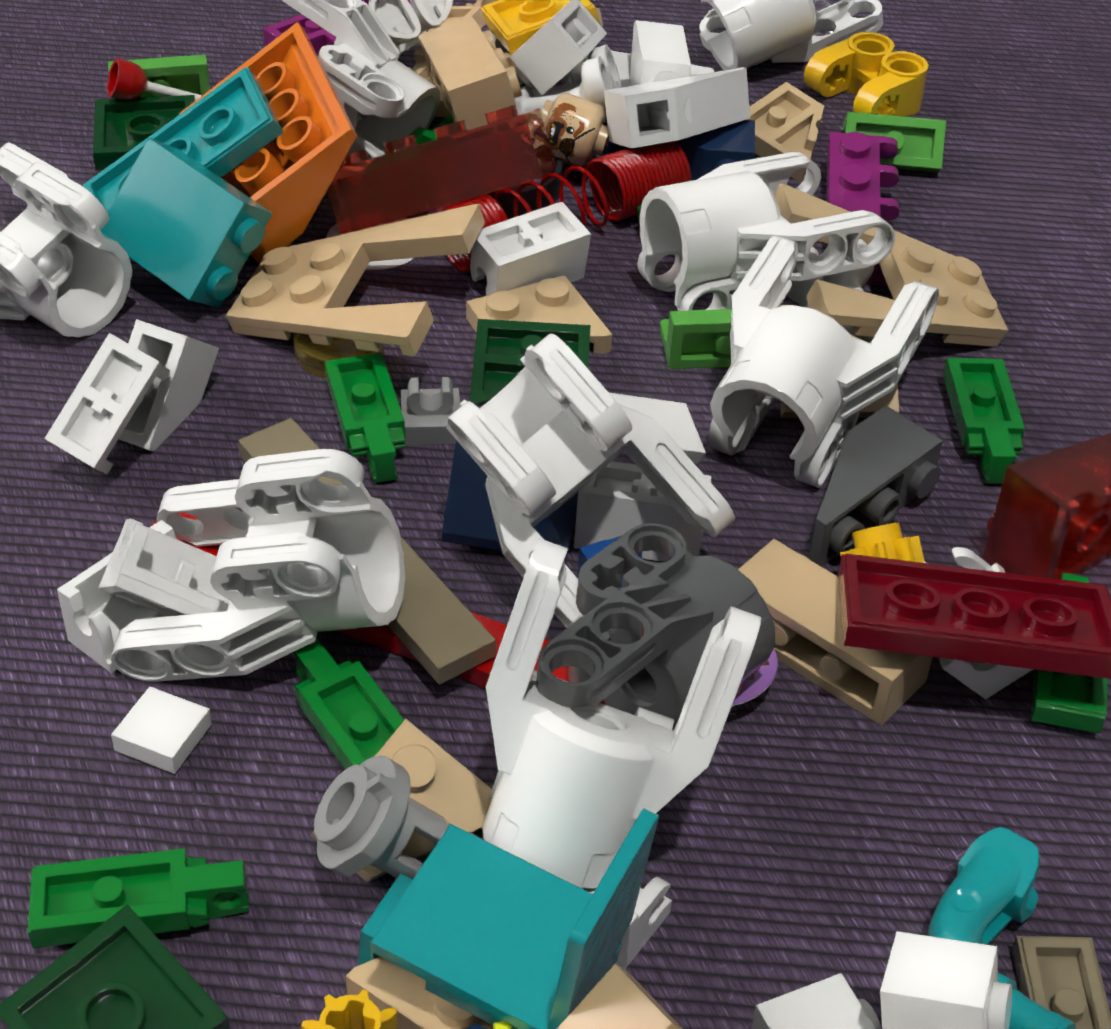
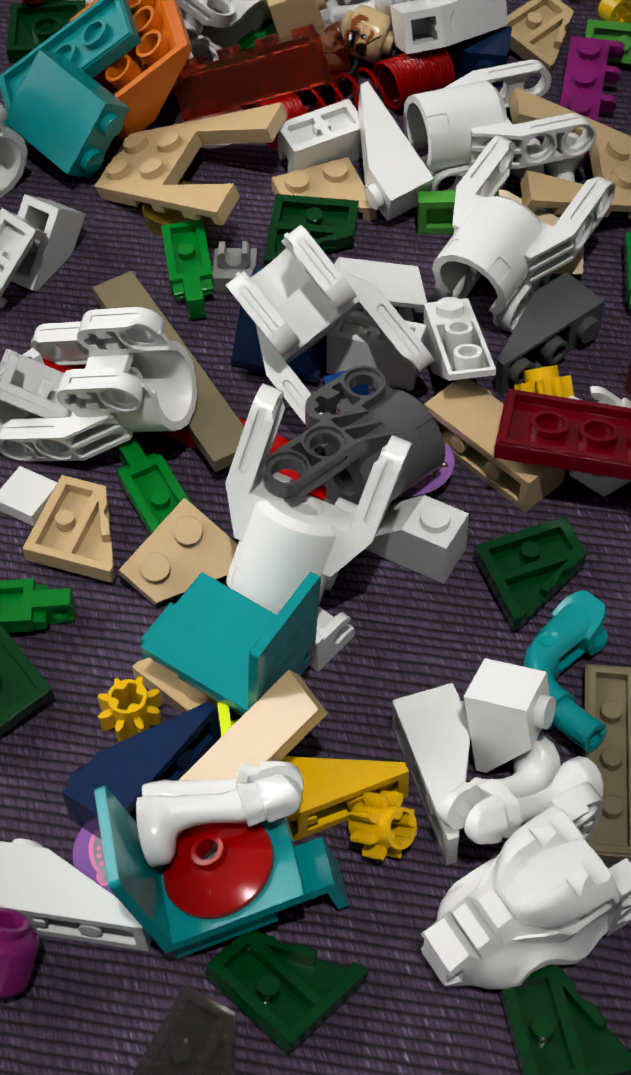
camera: 10 degrees right, 10 degrees up
(239, 777) = (74, 531): none -> tan wing
(370, 819) = (152, 566): light grey piece -> none
(626, 274) = (389, 161): none -> white slope
(759, 764) = (422, 536): none -> white slope
(761, 494) = (456, 340): none -> white slope
(908, 799) = (530, 566): none -> dark green wing

